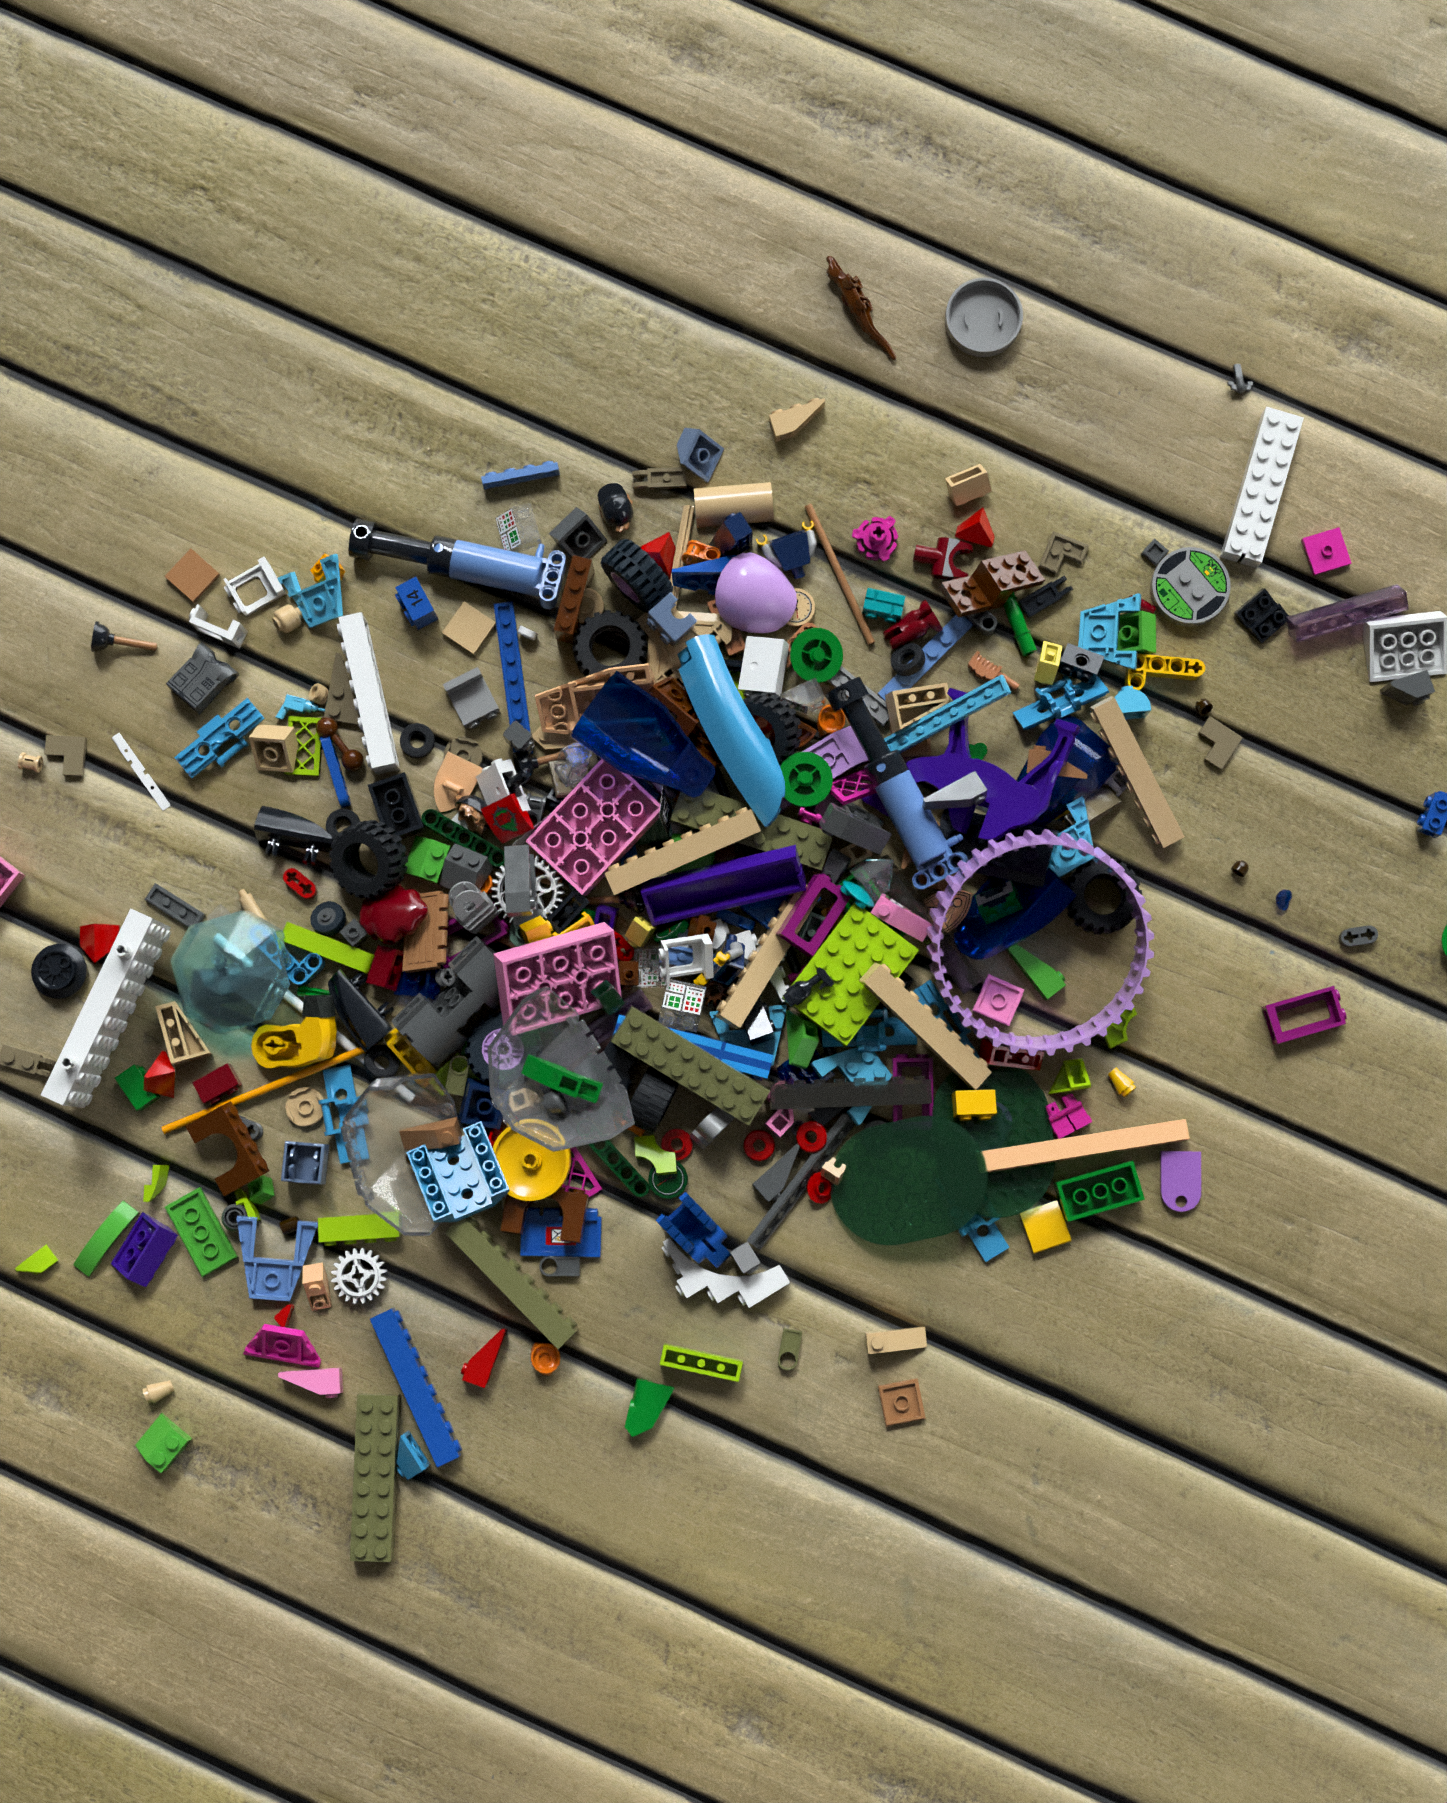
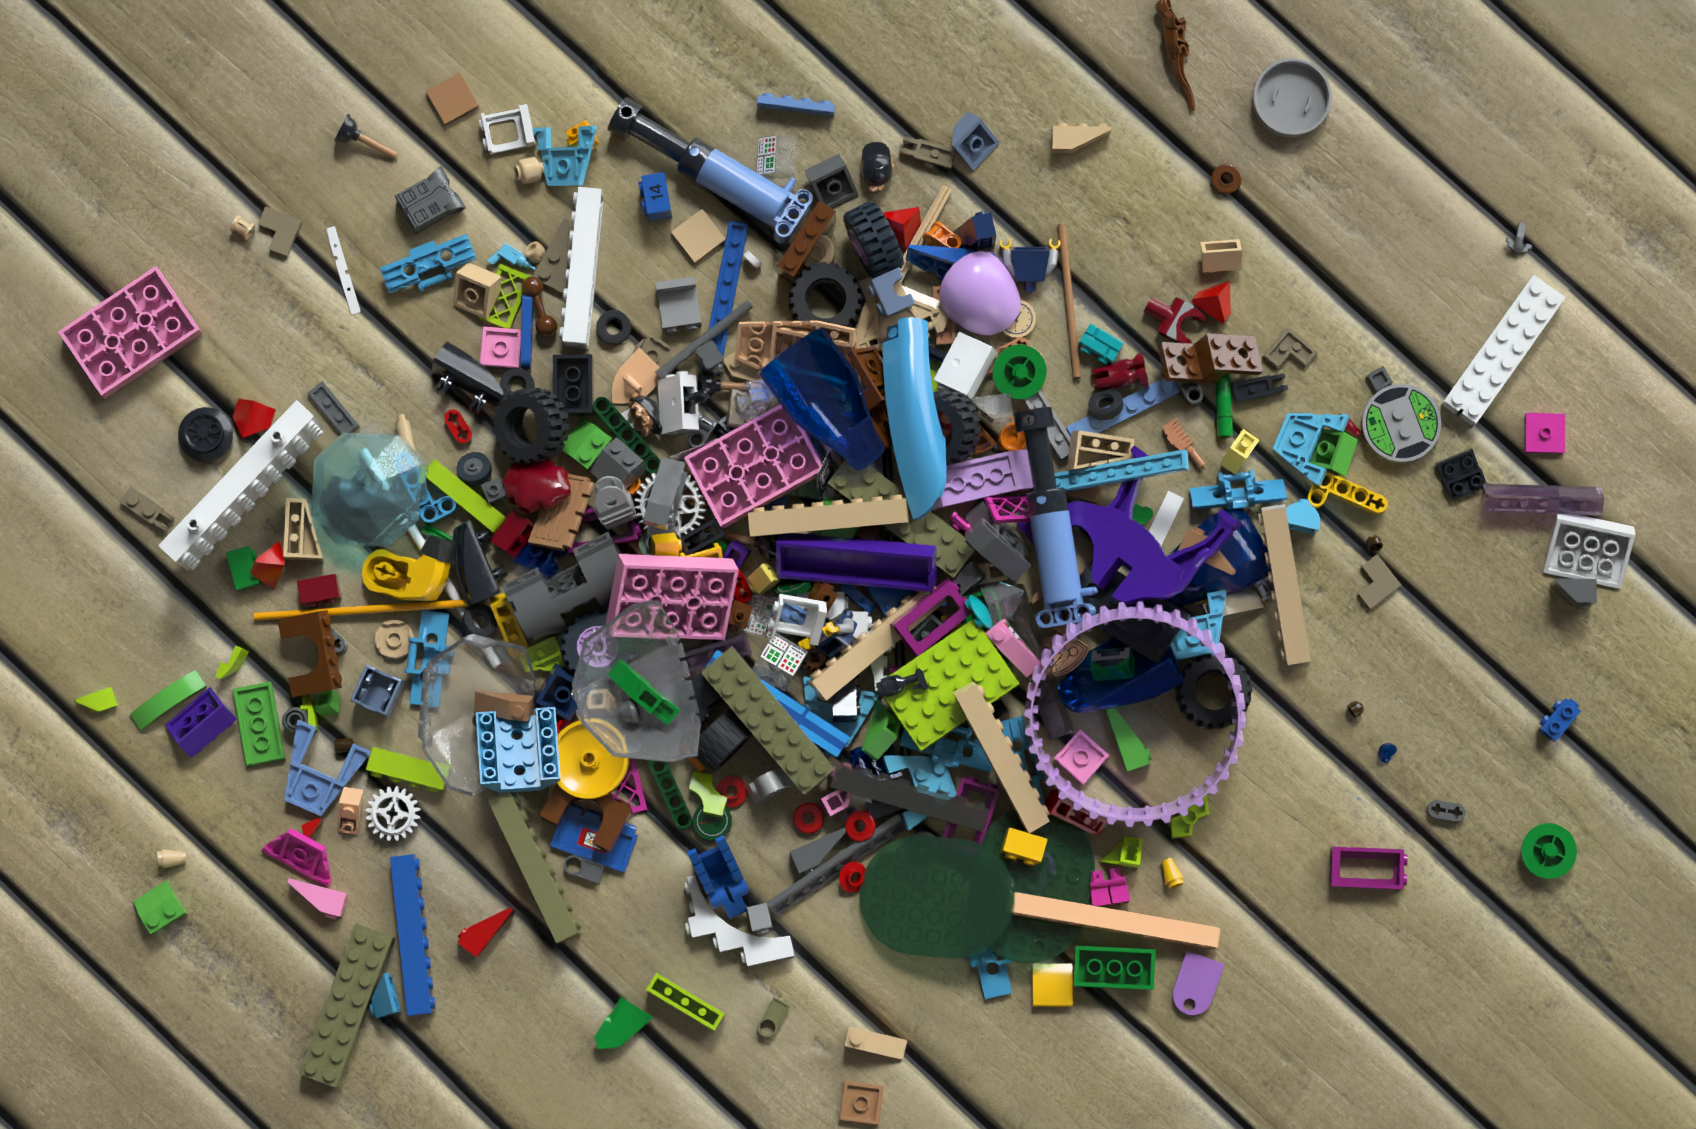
camera: 20 degrees right, 0 degrees up
(234, 635) = (472, 171): white window -> none
(315, 795) = (500, 347): none -> bright pink plate
(450, 977) = (560, 561): light grey bush -> none
(456, 1080) = (545, 661): olive piece -> none
(507, 818) = (674, 430): red slope -> none
(511, 716) = (706, 337): none -> dark grey piece
(545, 1358) = (541, 949): orange piece -> none
(607, 997) = (712, 631): clear green brick -> none
(718, 502) = (1004, 201): tan brick -> none
(806, 779) = (968, 486): green wheel -> none
(832, 1173) = (868, 867): tan tile -> none
(880, 526) = (1124, 269): dark pink piece -> none
(948, 403) = (1230, 170): none -> reddish brown piece
(959, 794) = (1106, 549): slope -> none
(999, 744) = (1165, 516): none -> white sticker
(1075, 656) = (1264, 454): brick -> none

